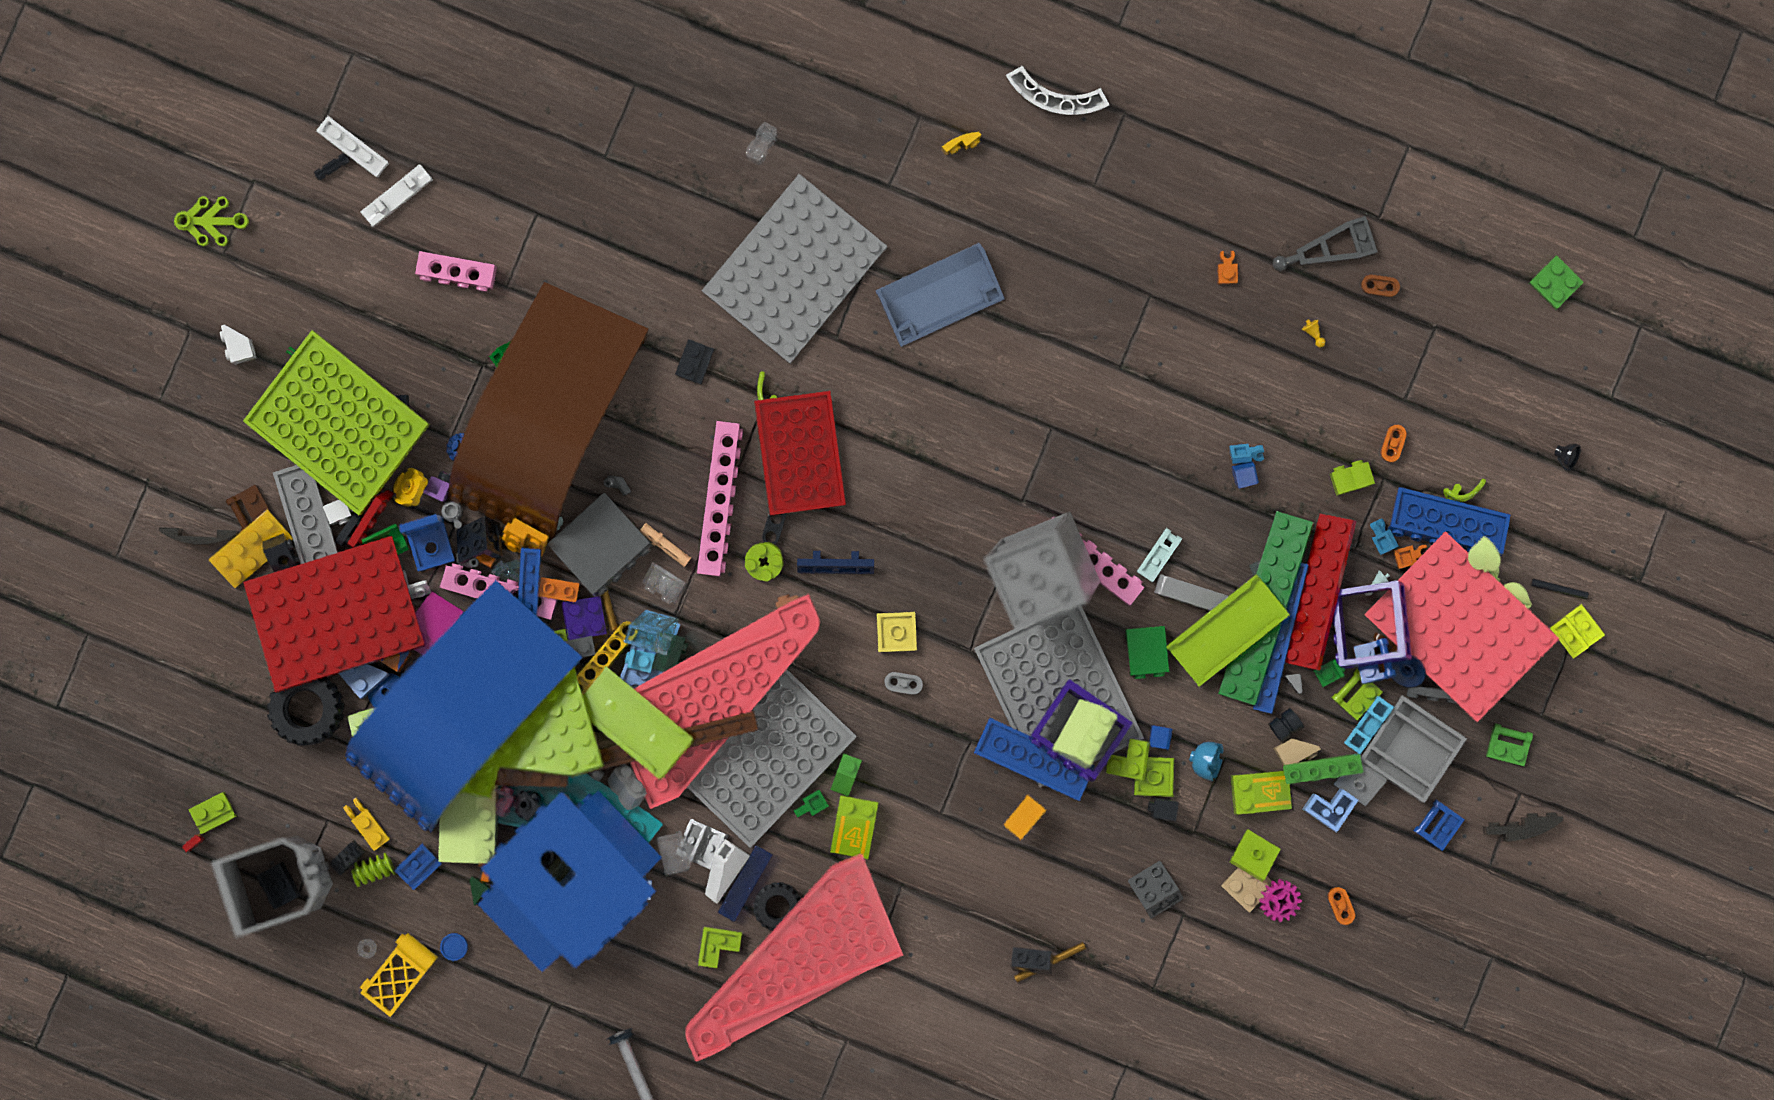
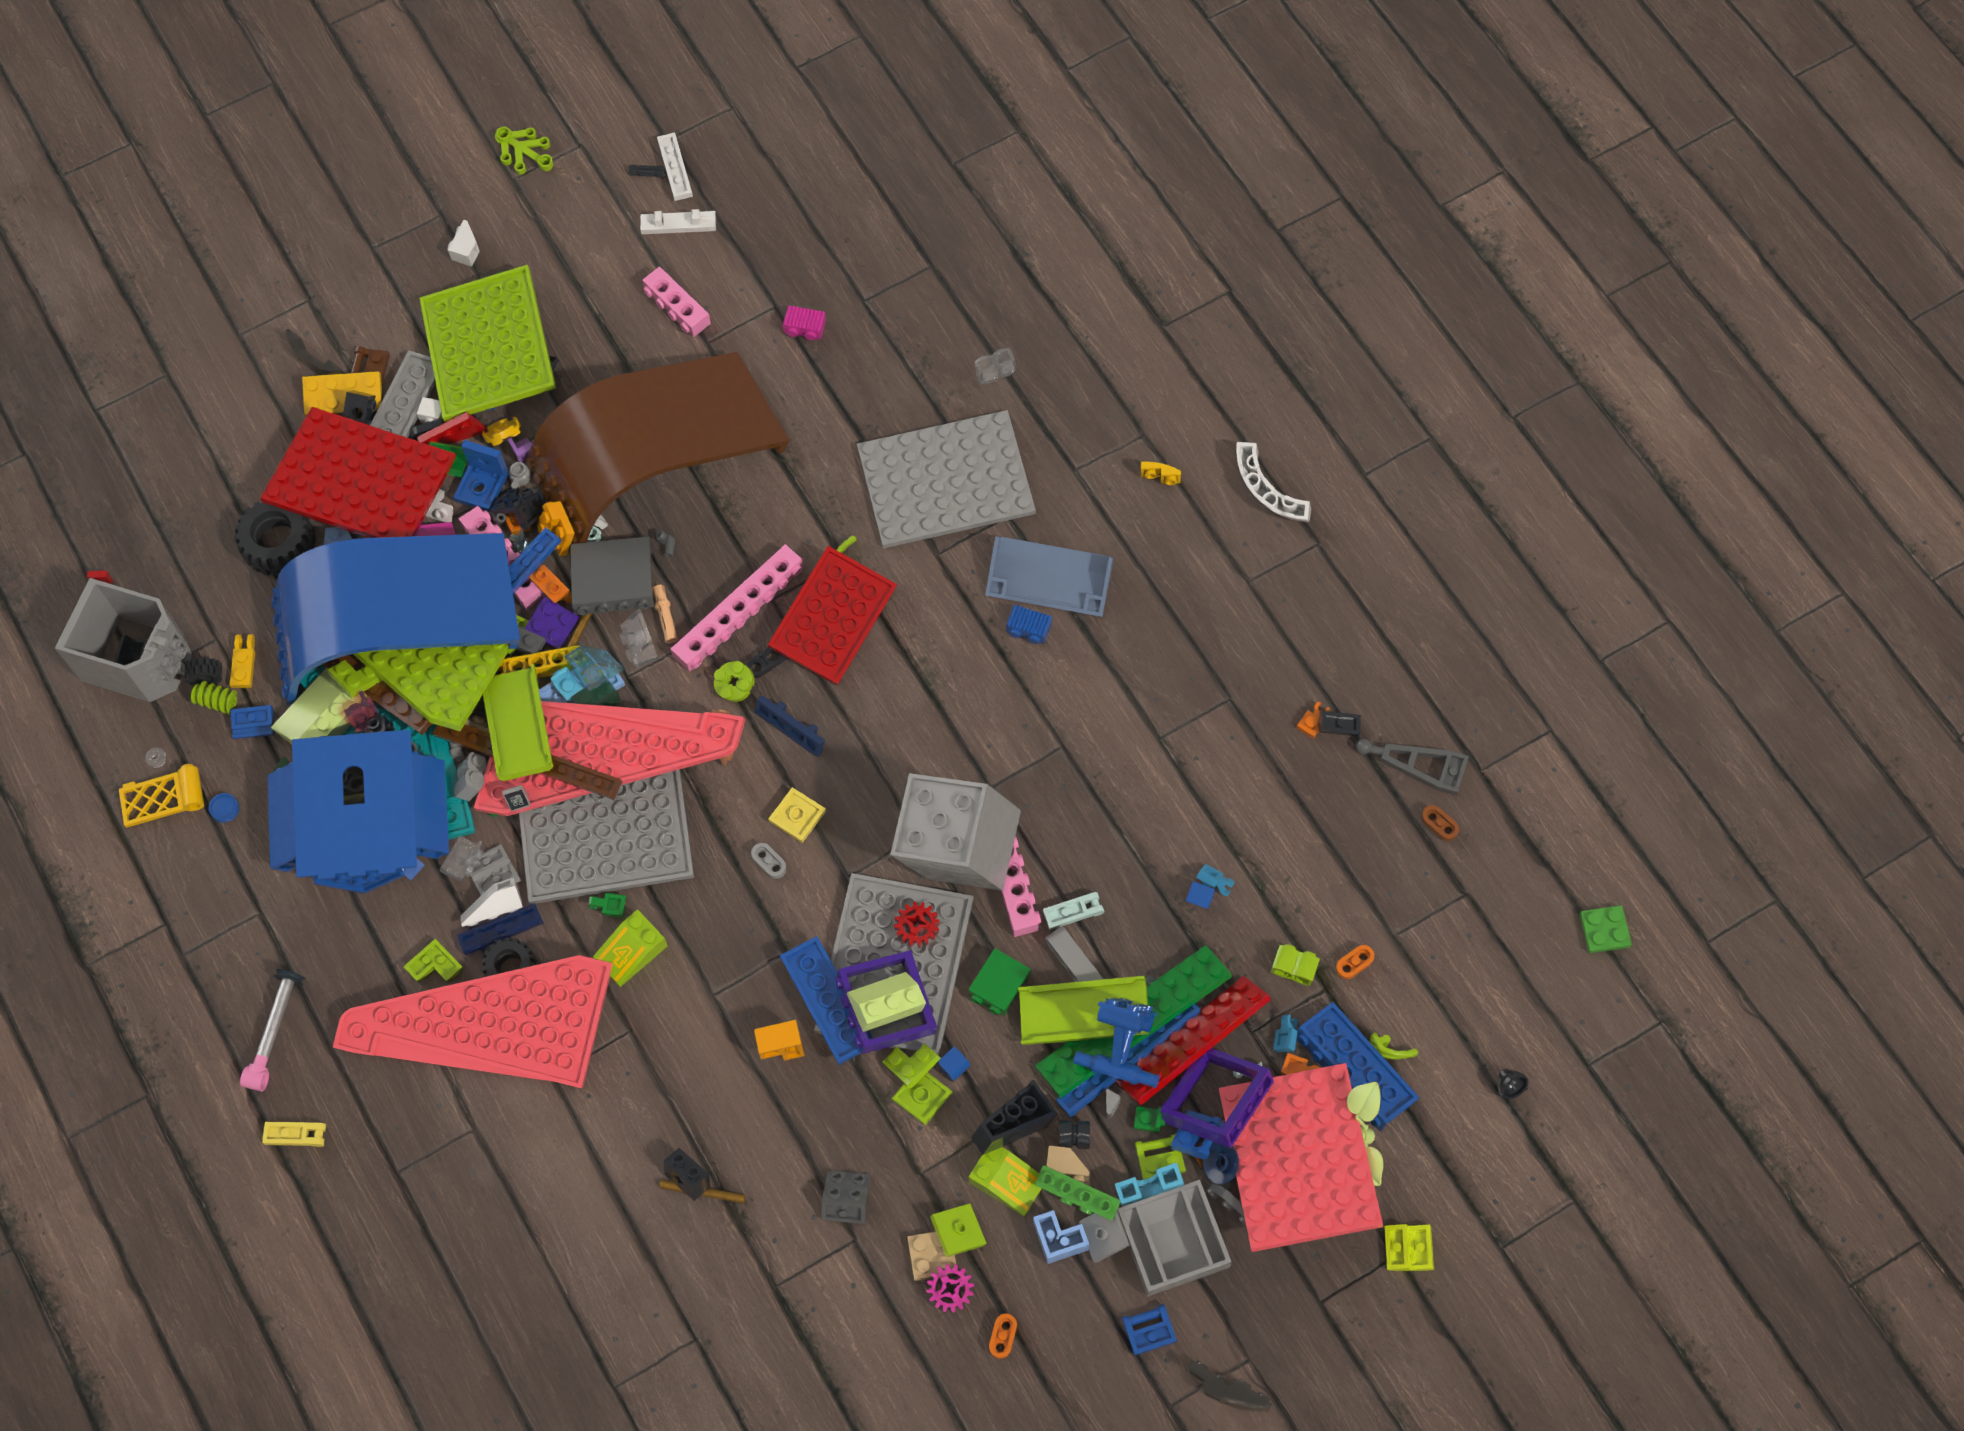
camera: 40 degrees right, 20 degrees down
(212, 813) = (135, 568): lime plate -> none
(576, 214) = (804, 322): none -> dark pink brick
(681, 780) = (516, 798): none -> slope
(694, 361) = (806, 493): black plate -> none
(846, 774) = (659, 899): bright green slope -> none
(955, 348) = (1028, 624): none -> blue brick
(1052, 645) = (922, 928): none -> red gear
(1163, 809) = (907, 1125): black brick -> none
(1206, 760) = (977, 1109): dark azure cylinder -> none
(1240, 741) = (1017, 1118): none -> black wedge
(1251, 259) = (1339, 723): none -> black plate
(1273, 621) = (1127, 1021): none -> blue plate
(1312, 329) = (1352, 817): yellow piece -> none
(1508, 751) = (1263, 1310): bright green plate -> none
(1558, 588) = (1420, 1199): black bar -> none

